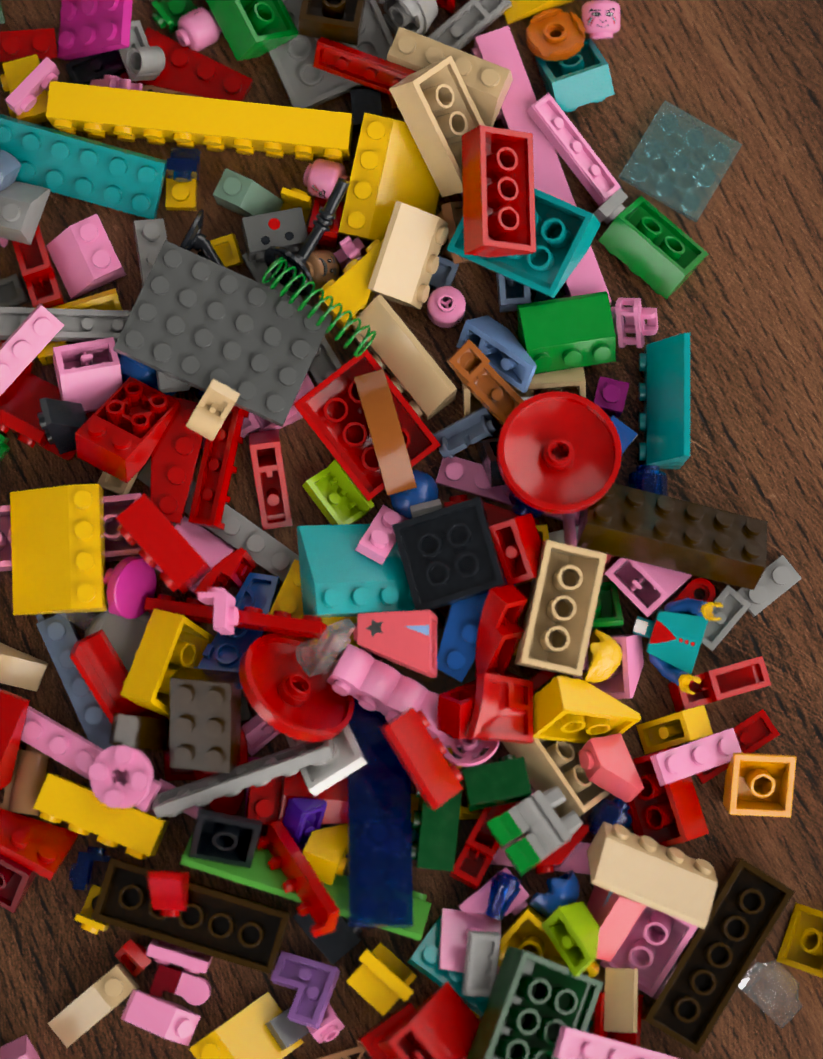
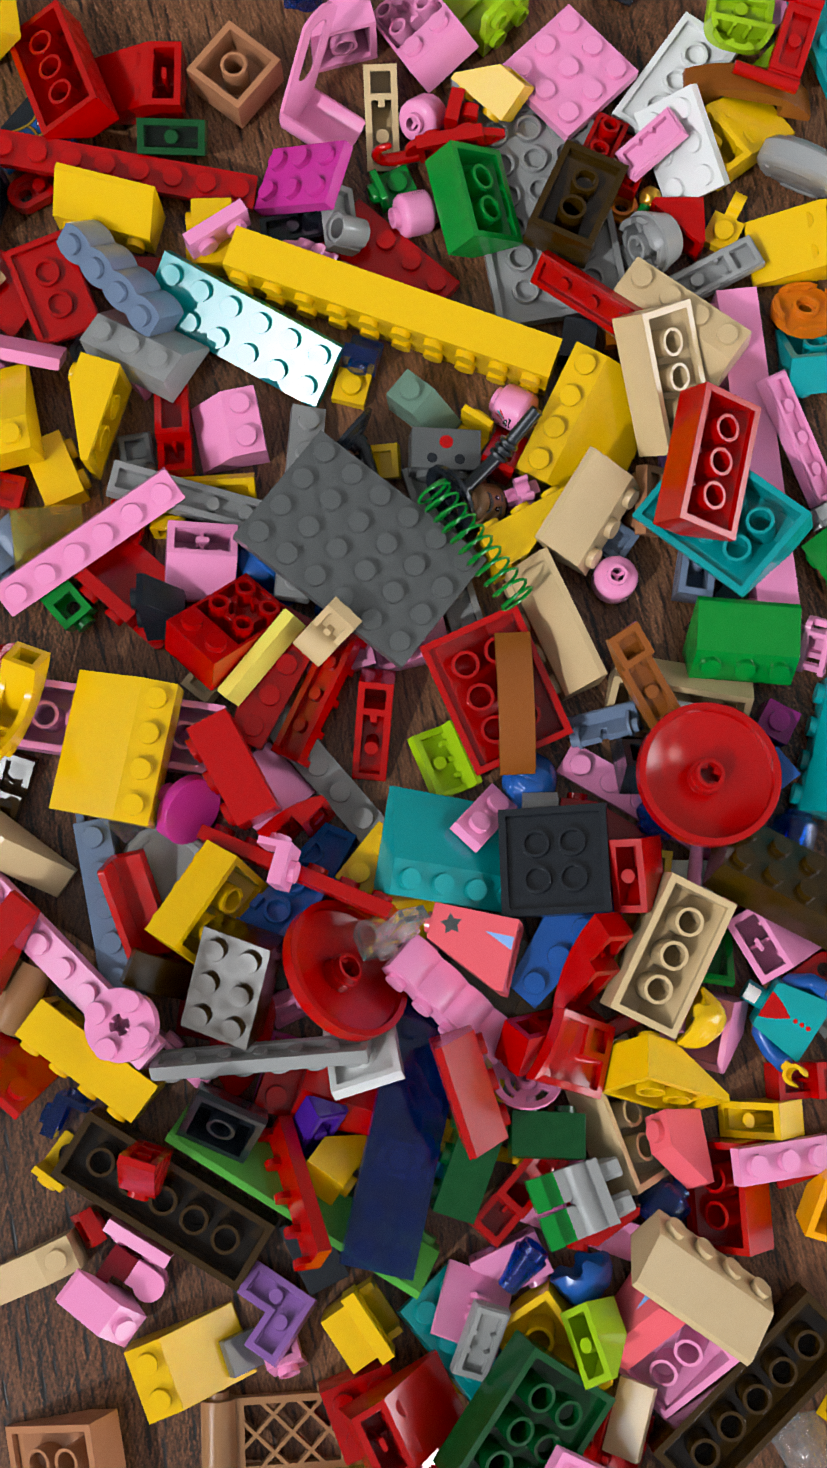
camera: 15 degrees right, 0 degrees up
(162, 445) = (261, 657): none -> light yellow tile
(502, 350) = (672, 646): medium blue slope -> none

